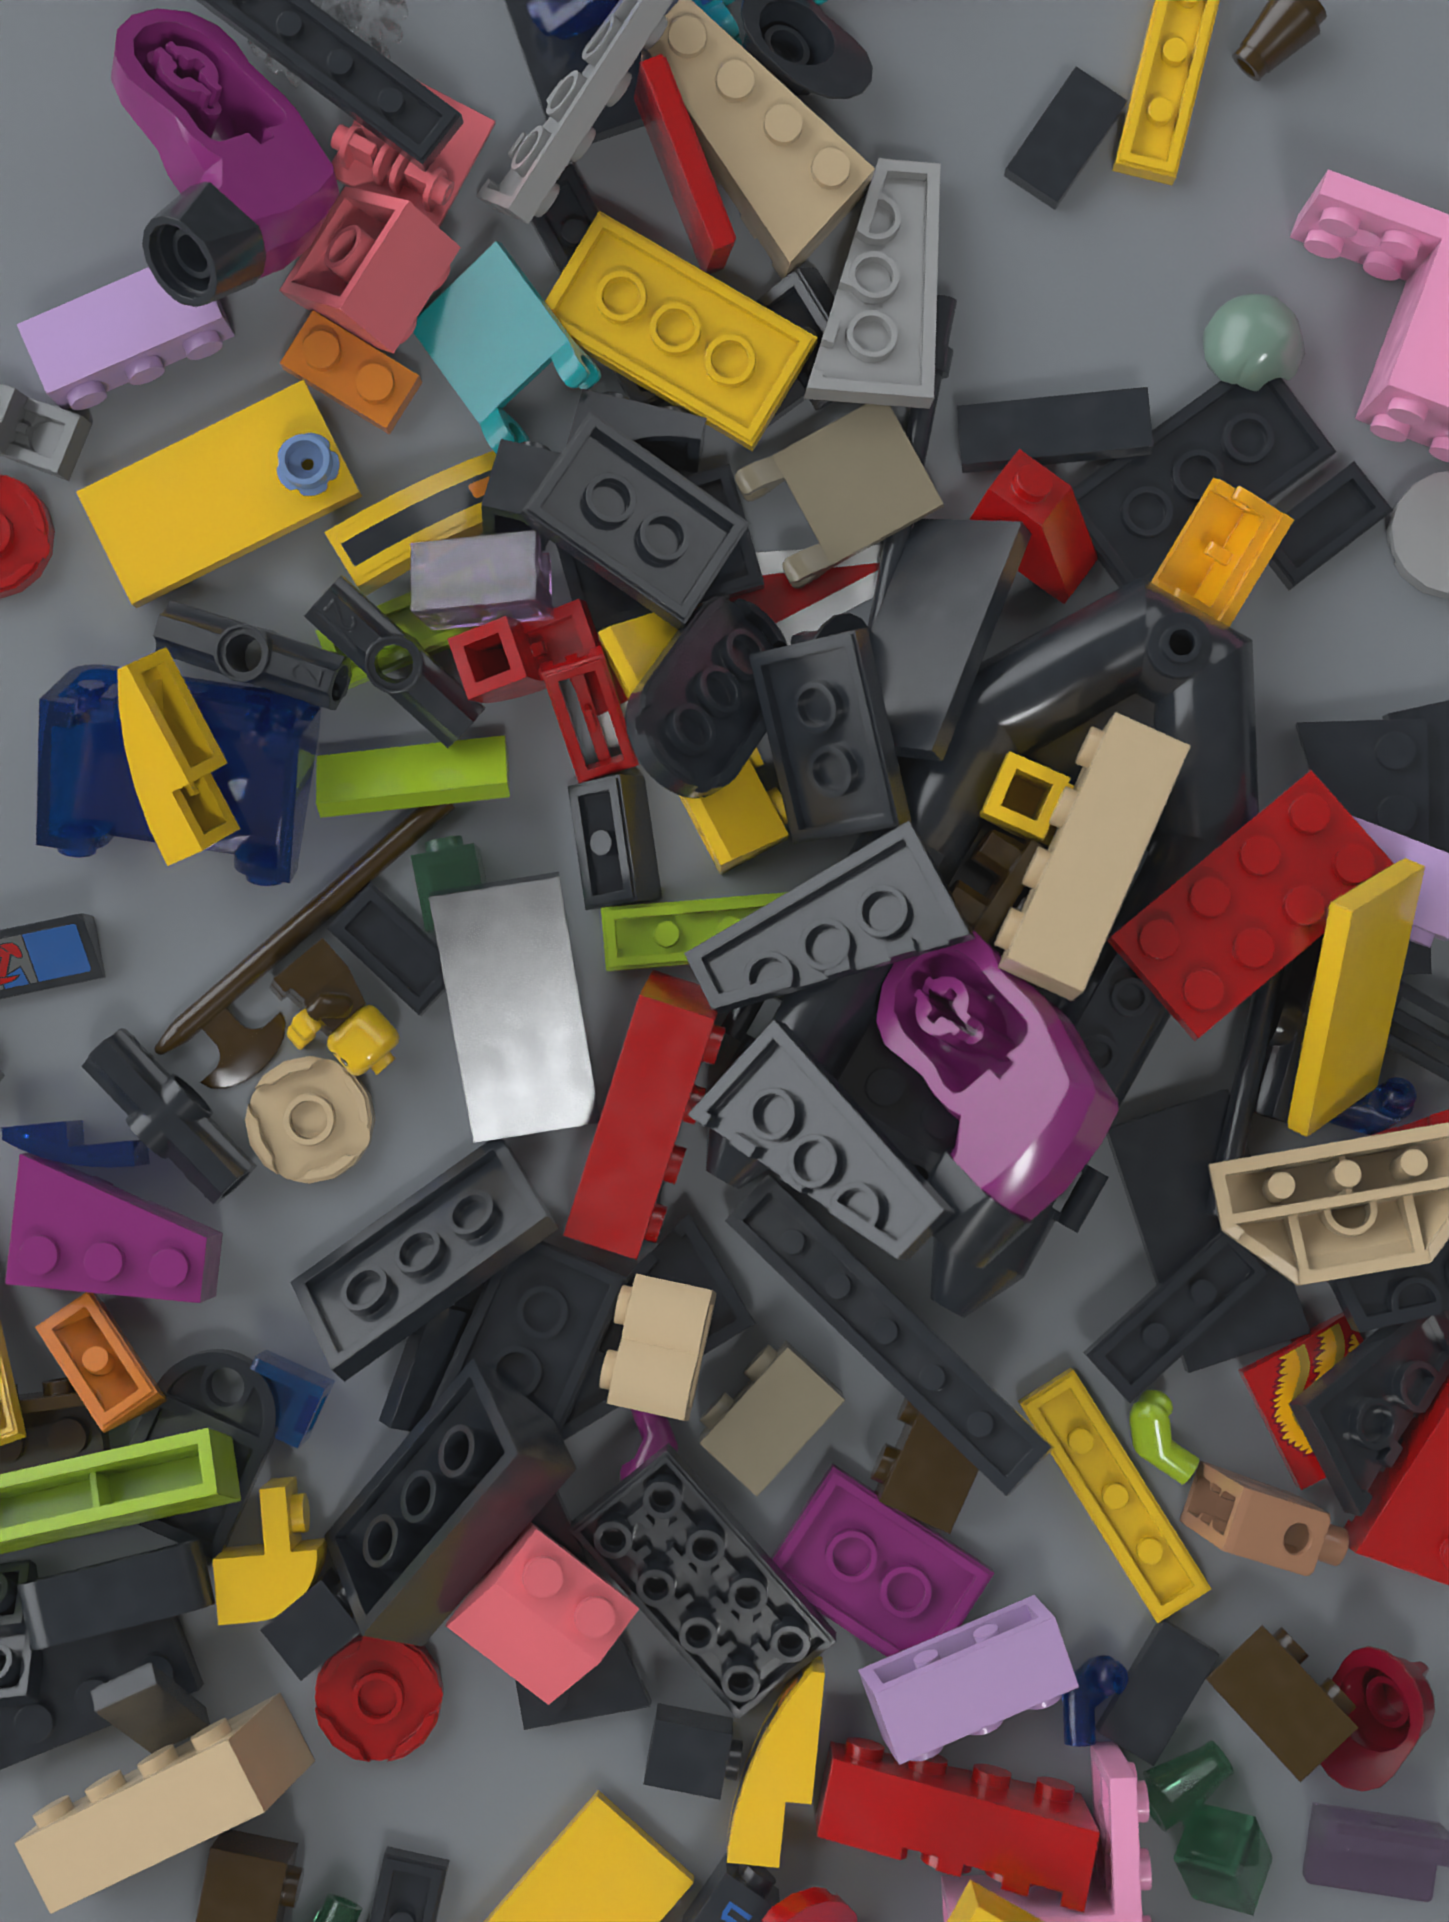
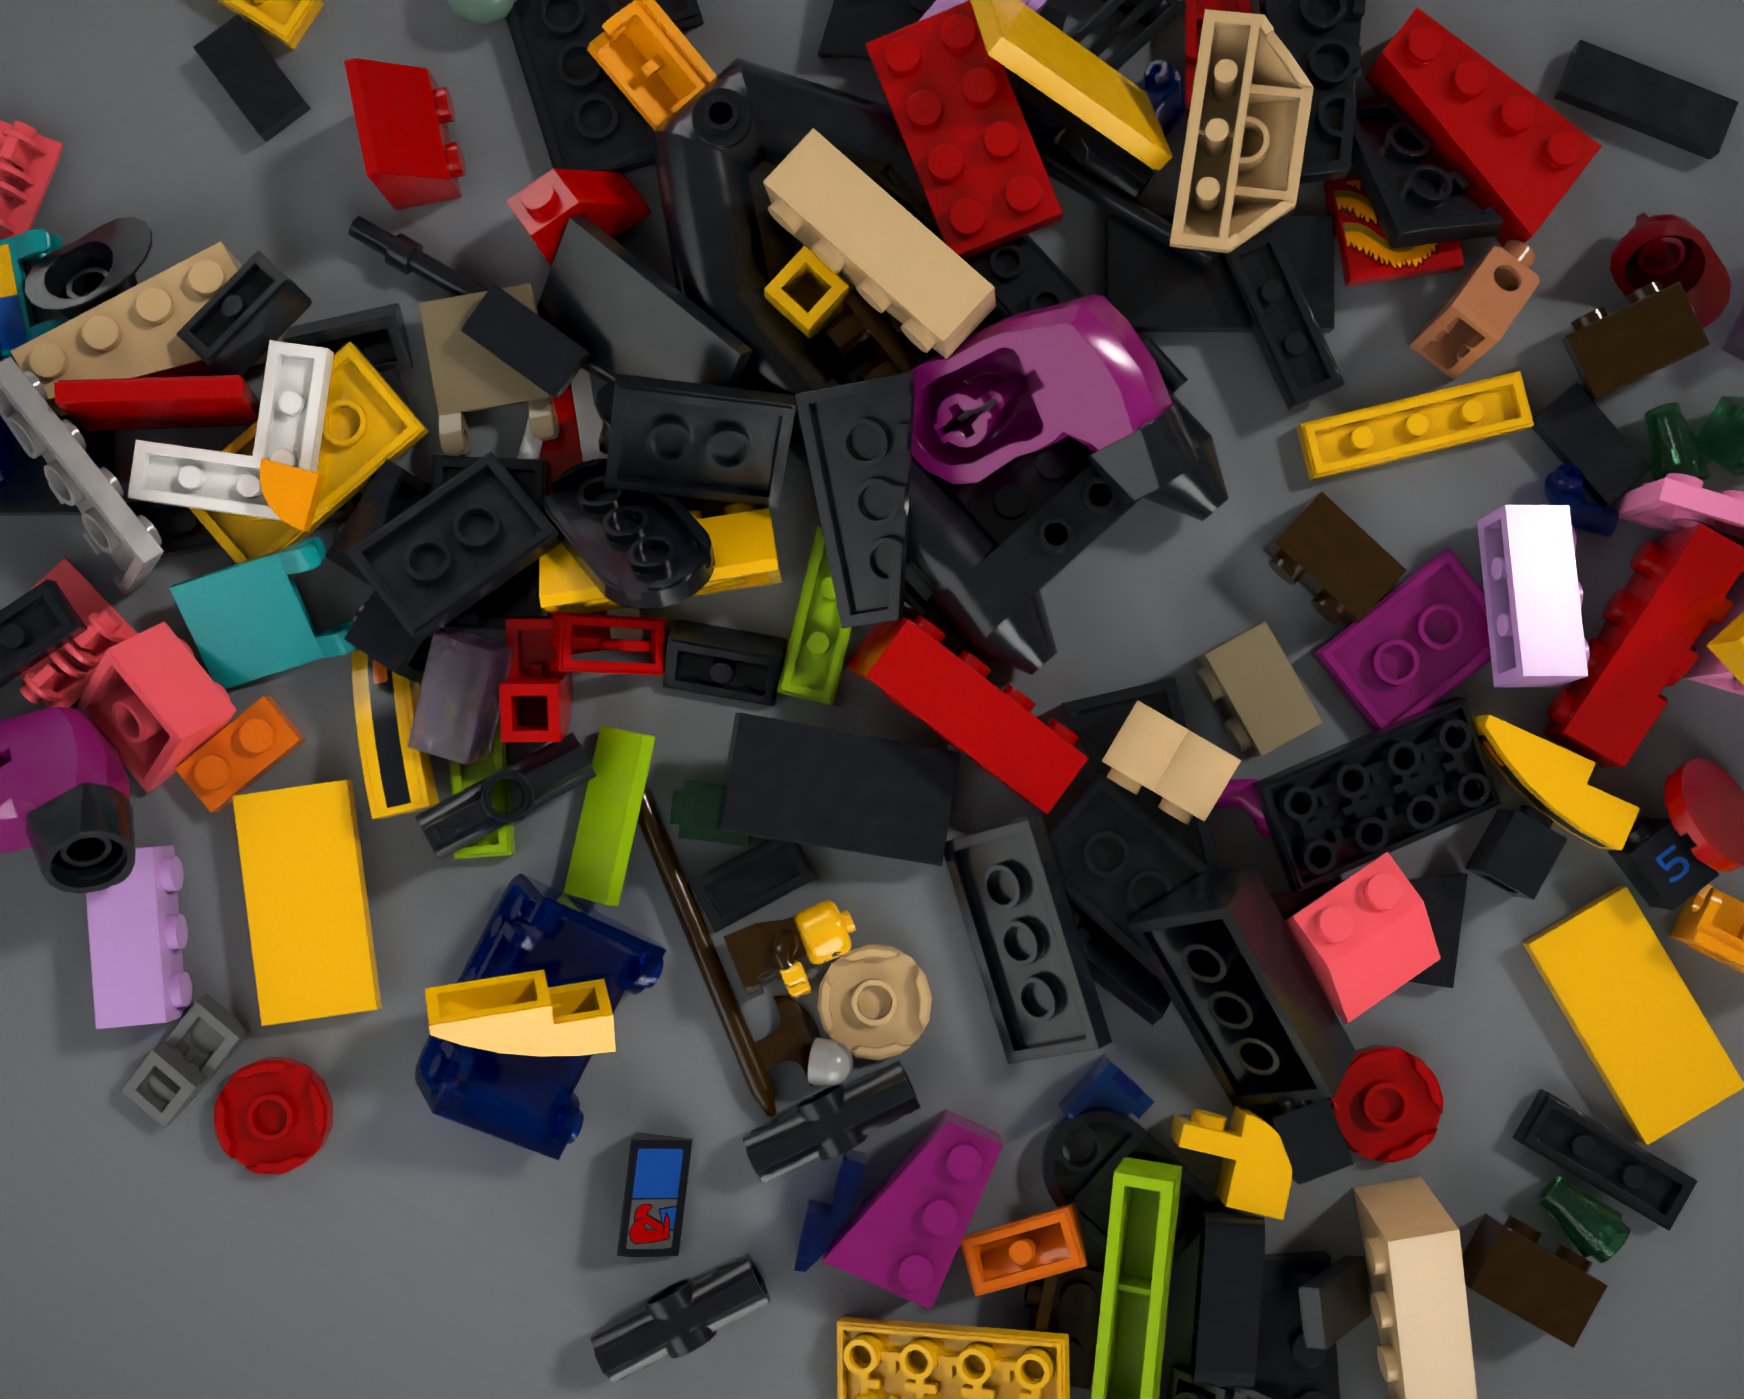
camera: 75 degrees left, 0 degrees up
(229, 1092) = (829, 1063): none -> light grey hinge
(284, 666) = (478, 893): black piece -> none
(299, 449) = (292, 820): medium blue plate -> none
(633, 333) = (291, 492): none -> light orange tile
(671, 313) = (286, 433): none -> white plate
(801, 221) = (244, 316): none -> black slope
(812, 1133) = (1033, 566): wing -> none
(878, 520) = (525, 341): none -> black tile
(885, 306) = (353, 278): light grey wing -> none
(890, 1335) = (1224, 563): black plate -> none
(1056, 429) = (499, 168): black tile -> none
(1057, 319) = (405, 132): none -> red slope
(1153, 1438) = (1376, 376): lime arm -> none

